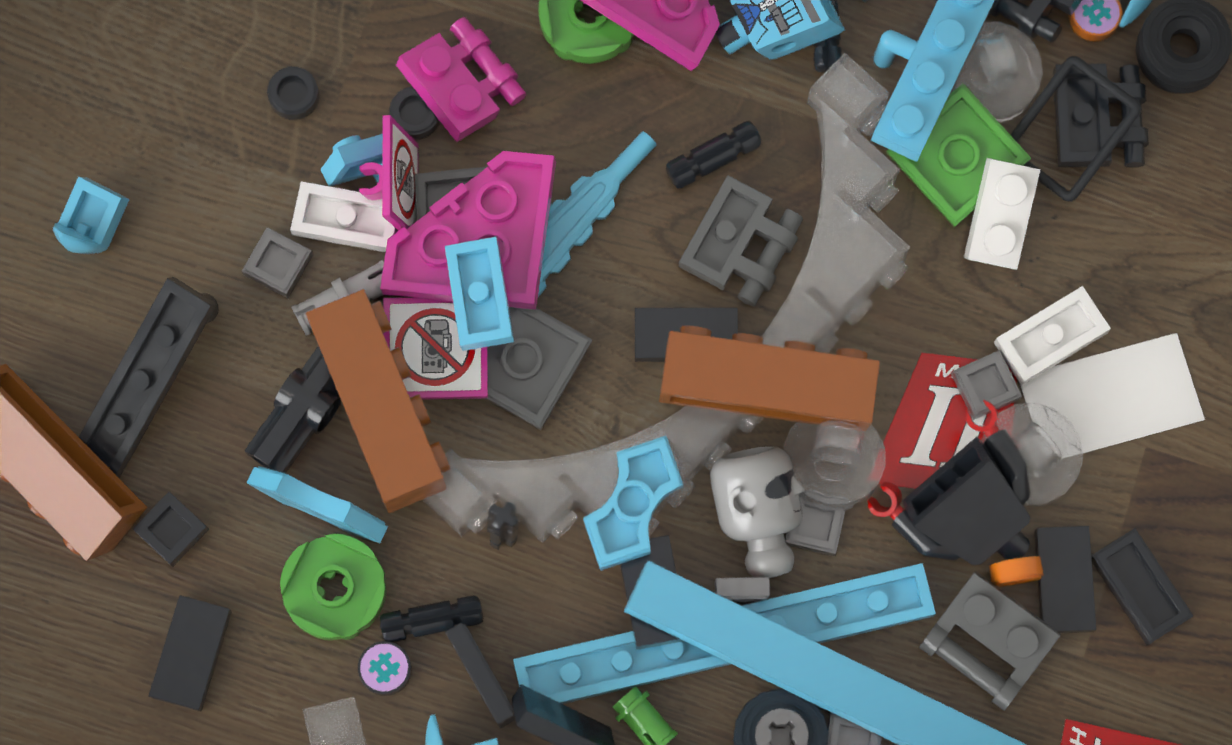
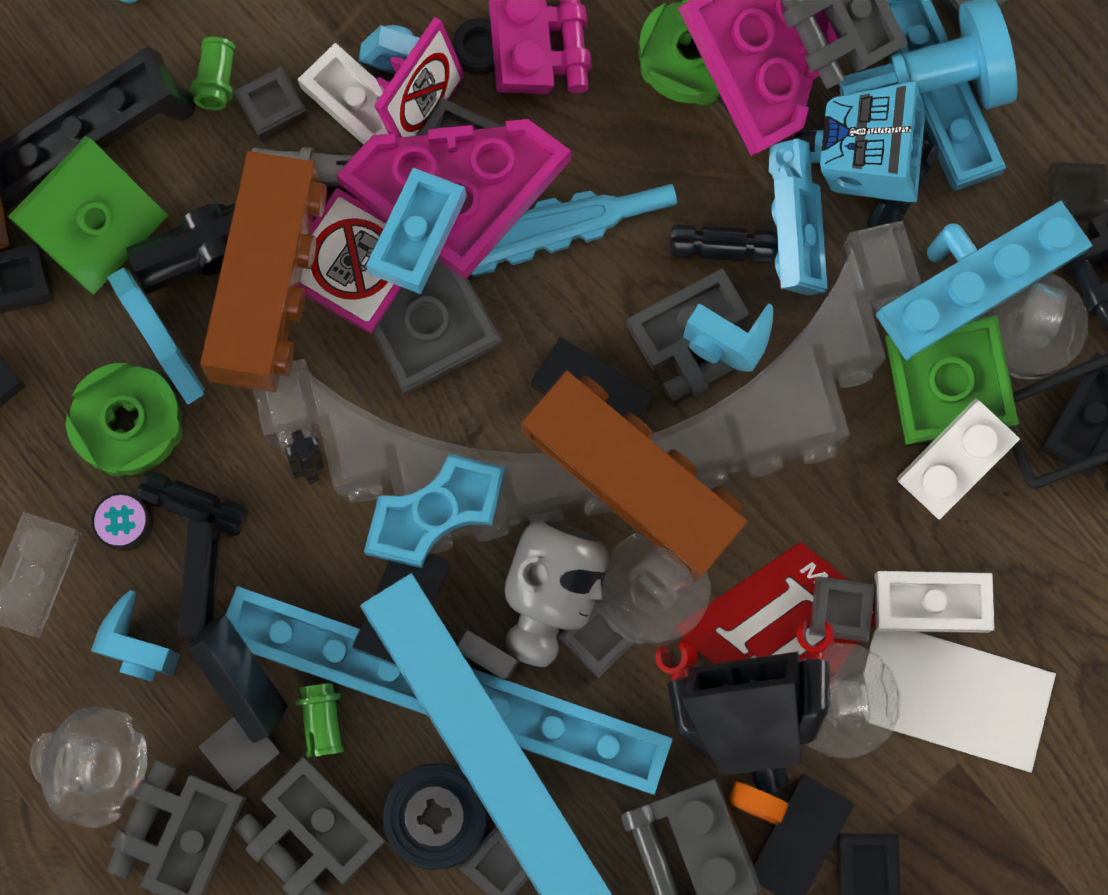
camera: 30 degrees right, 0 degrees up
(198, 443) = (88, 215): none -> bright green plate
(221, 276) = (212, 85): none -> bright green pin
(761, 99) = (798, 219): none -> medium azure hinge
(763, 234) = (719, 339): none -> medium azure plate

